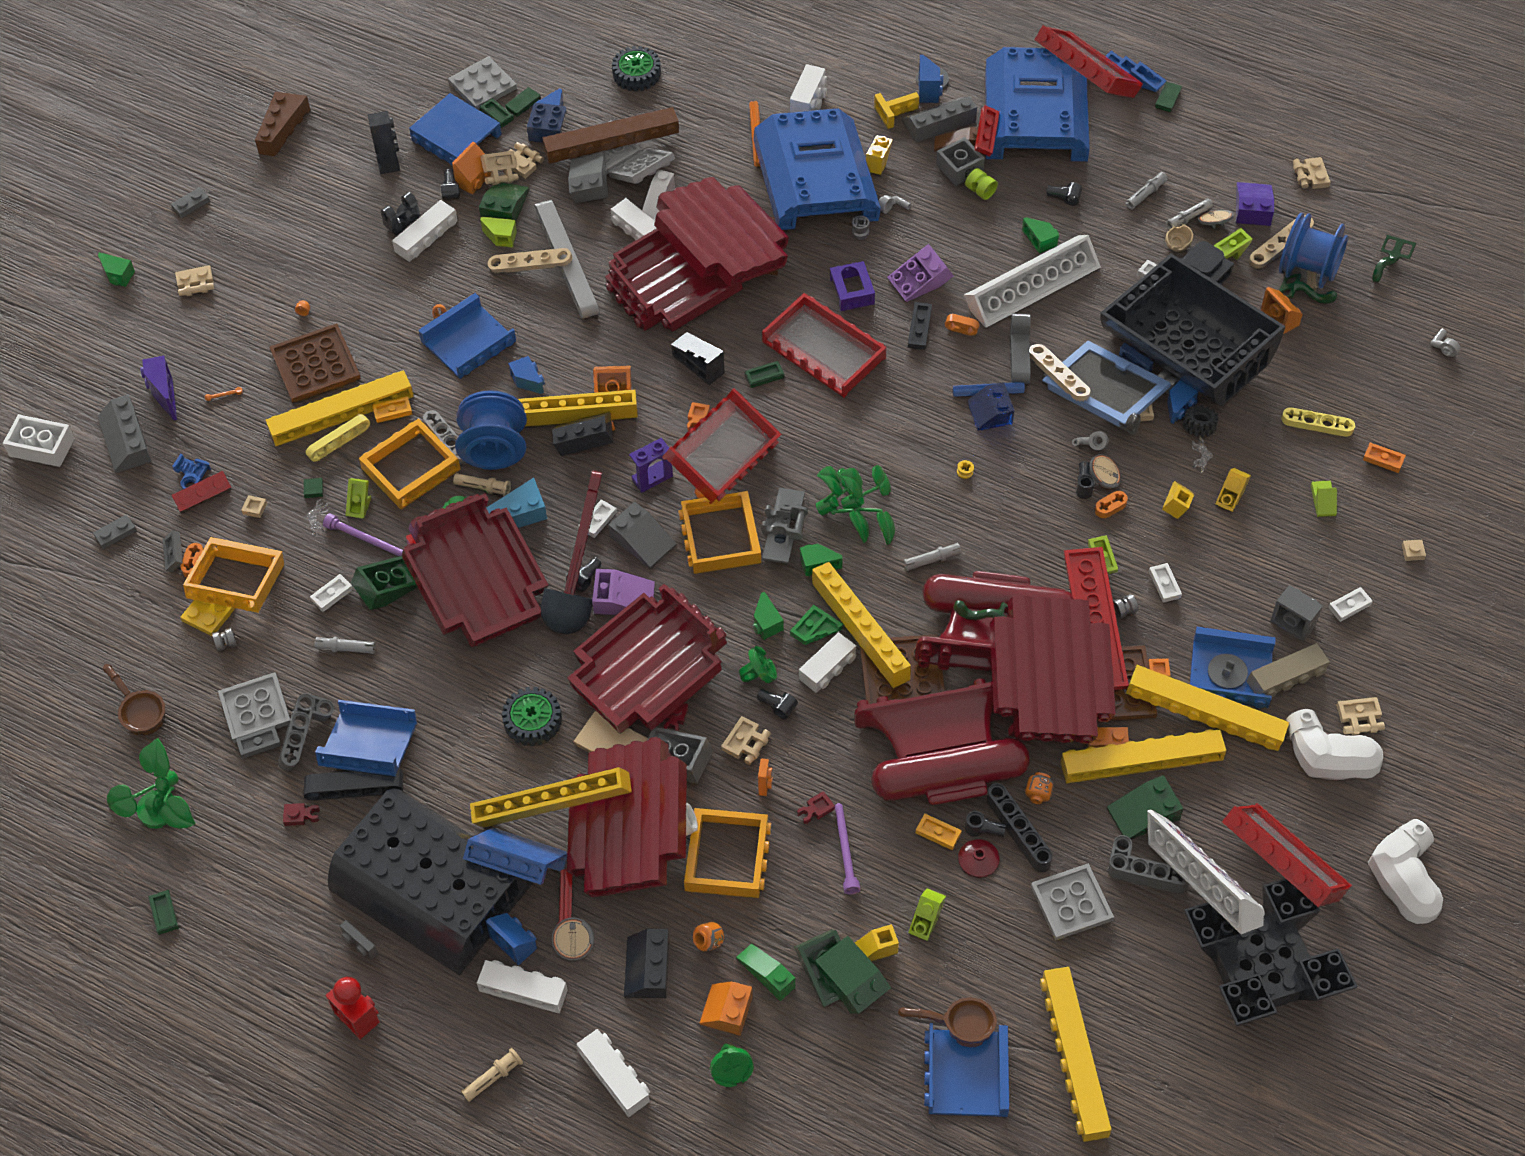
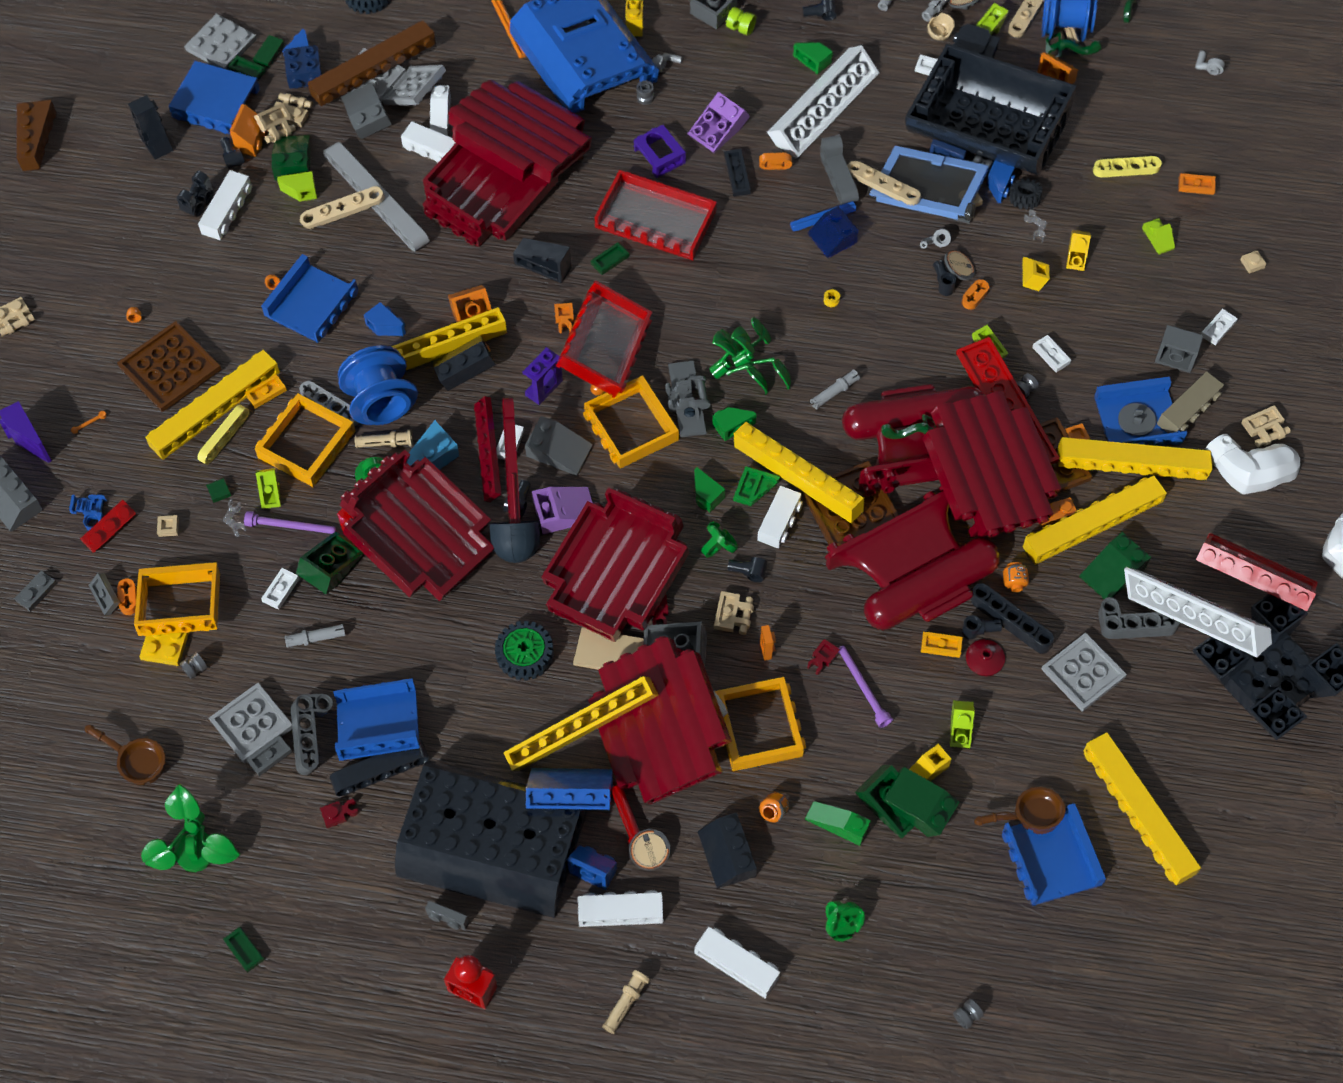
camera: 20 degrees left, 5 degrees up
(571, 524) = (487, 449): none -> dark red plate
(727, 1007) = (816, 867): orange slope -> none

